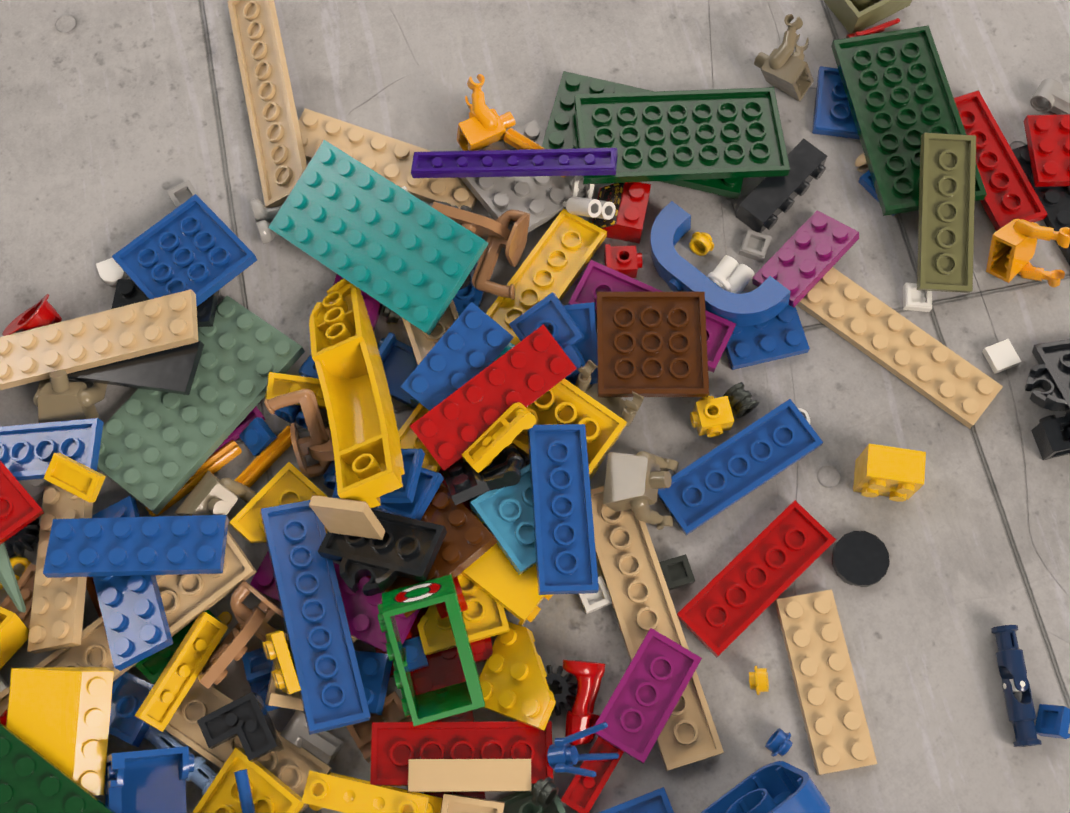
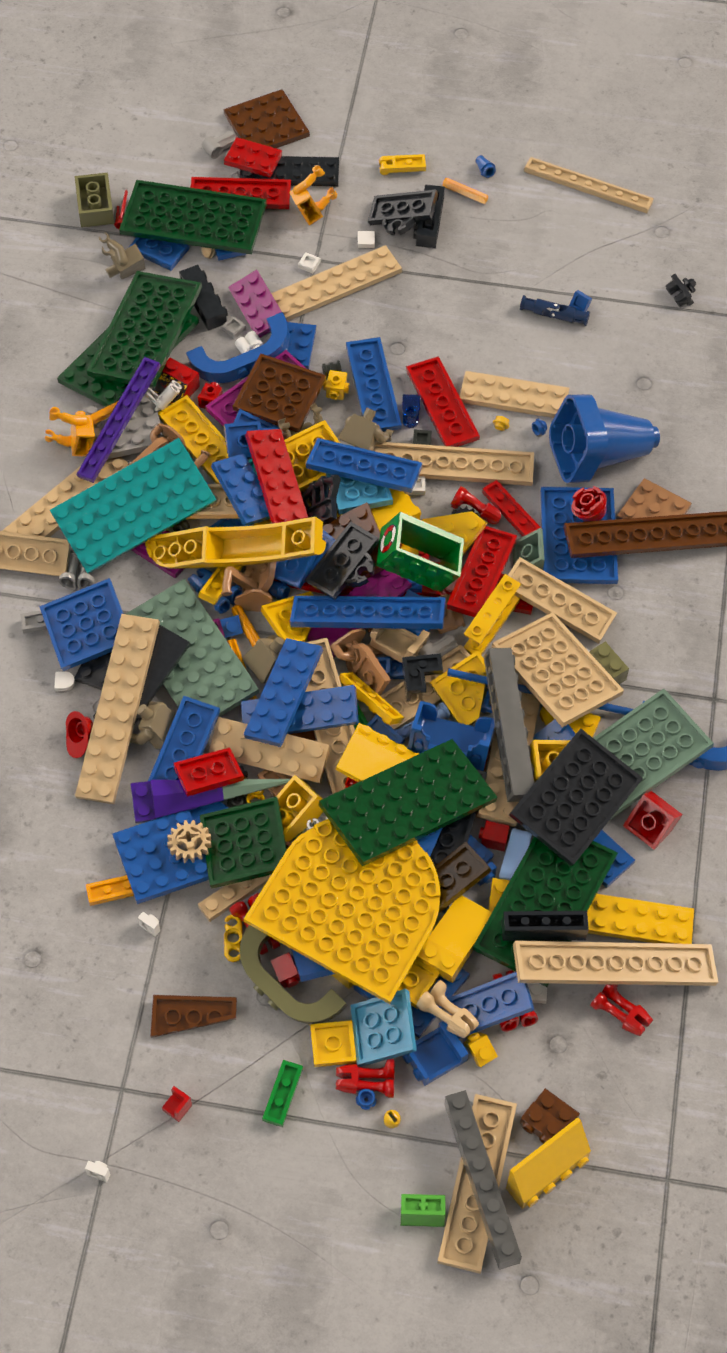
camera: 70 degrees left, 10 degrees down
(74, 477) = (219, 717): yellow tile -> none
(277, 650) = (392, 633): yellow plate -> none
(347, 517) = (324, 563): tan tile -> none
(469, 775) = (497, 566): tan tile -> none
(499, 436) = (305, 482): yellow plate -> none
(544, 792) = (521, 537): pearl dark grey plate -> none
(563, 756) = (505, 523): blue plant -> none
(647, 695) = (487, 473): magenta plate -> none
(701, 243) = (219, 352): yellow plate -> none
(727, 535) = (411, 410): none -> clear blue piece
(860, 558) = (453, 351): black tile -> none
(889, 472) = (412, 314): yellow brick -> none
(946, 213) = (269, 221): olive plate -> none

